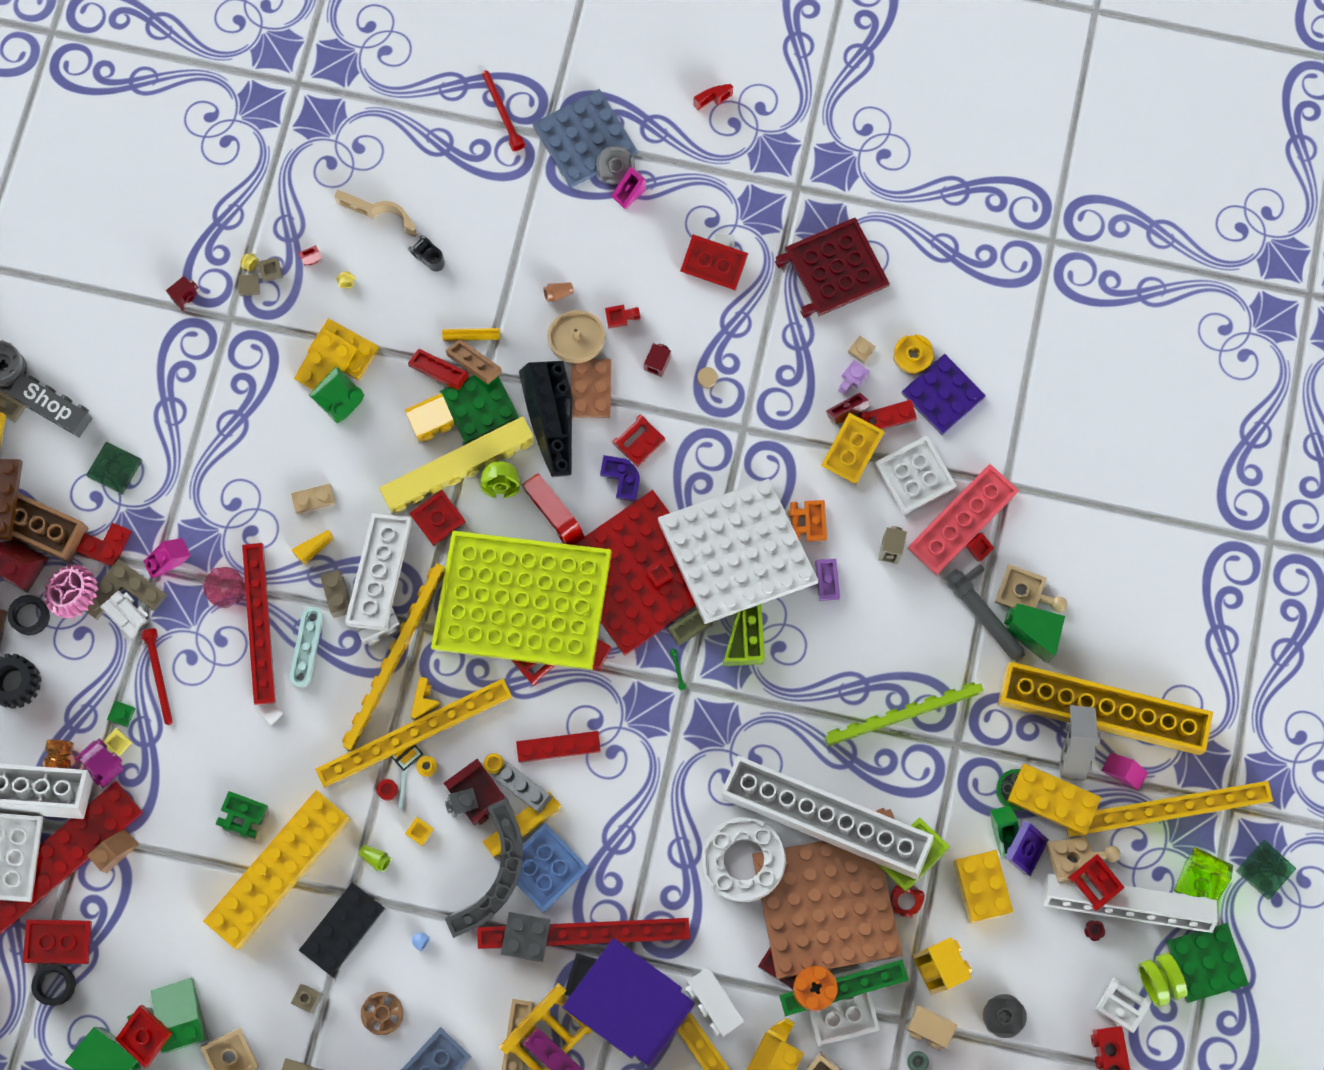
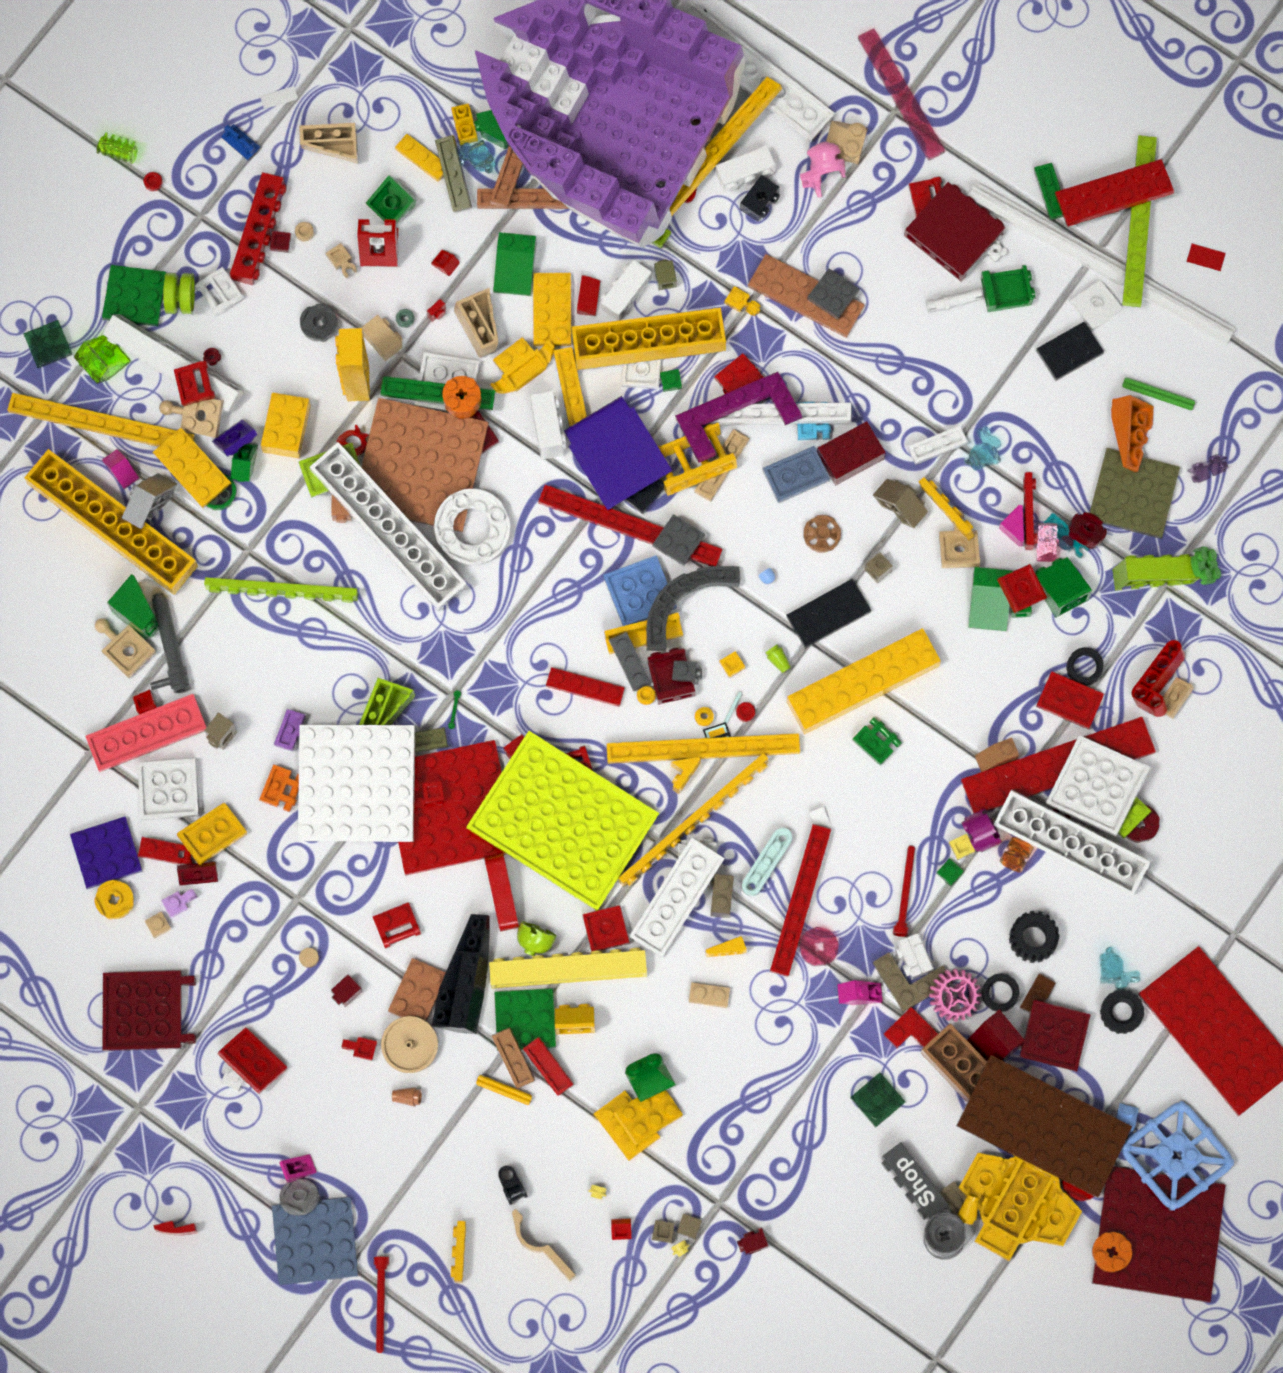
camera: 155 degrees left, 0 degrees up
(450, 177) = (458, 1251): none -> yellow plate
(626, 473) = (421, 898): dark purple plate -> none

